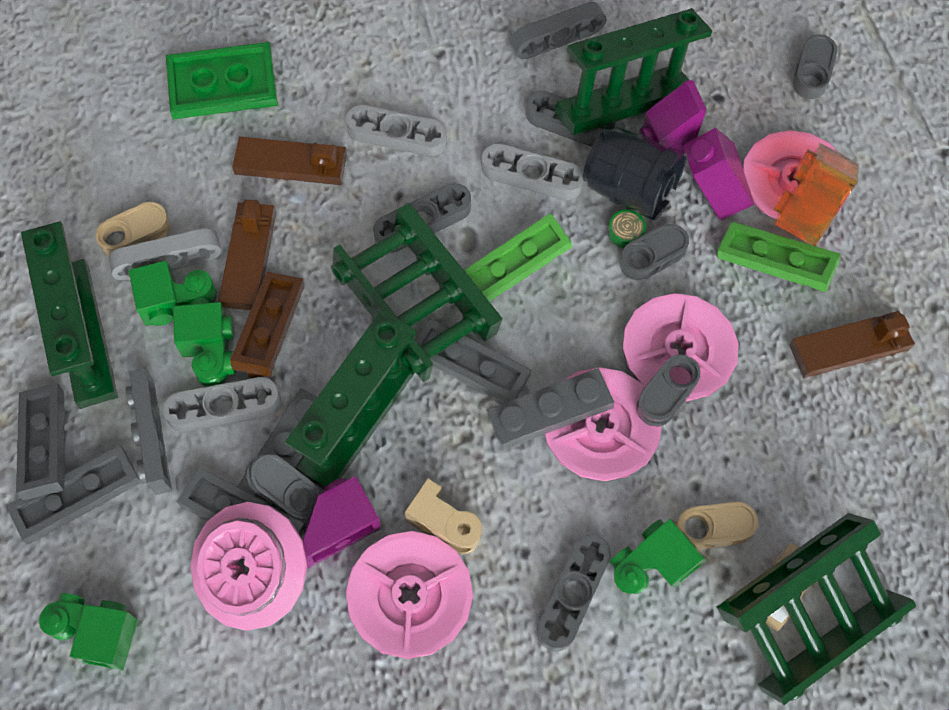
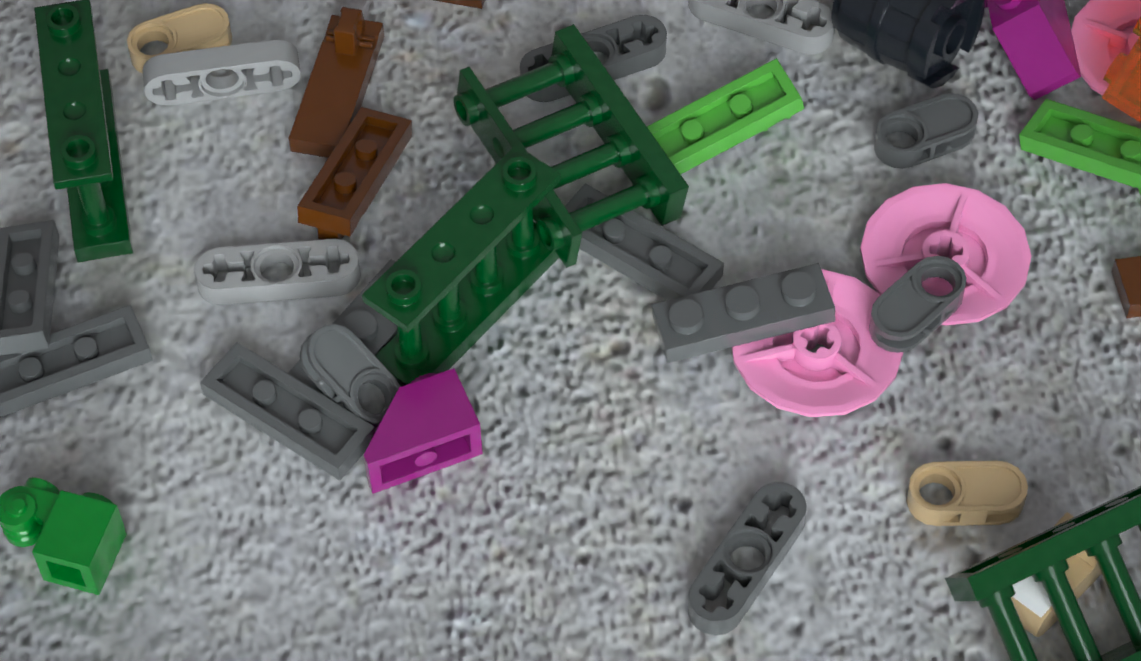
camera: 10 degrees right, 10 degrees down
(148, 432) = (171, 294): dark grey plate -> none
(158, 293) = (214, 130): green brick -> none
(205, 333) = (262, 182): green brick -> none
(274, 562) = (321, 493): bright pink piece -> none
(409, 562) = (517, 496): bright pink piece -> none
(436, 518) = (570, 447): tan leg -> none
(626, 227) = (886, 93): tile -> none
(663, 549) = (877, 507): green brick -> none

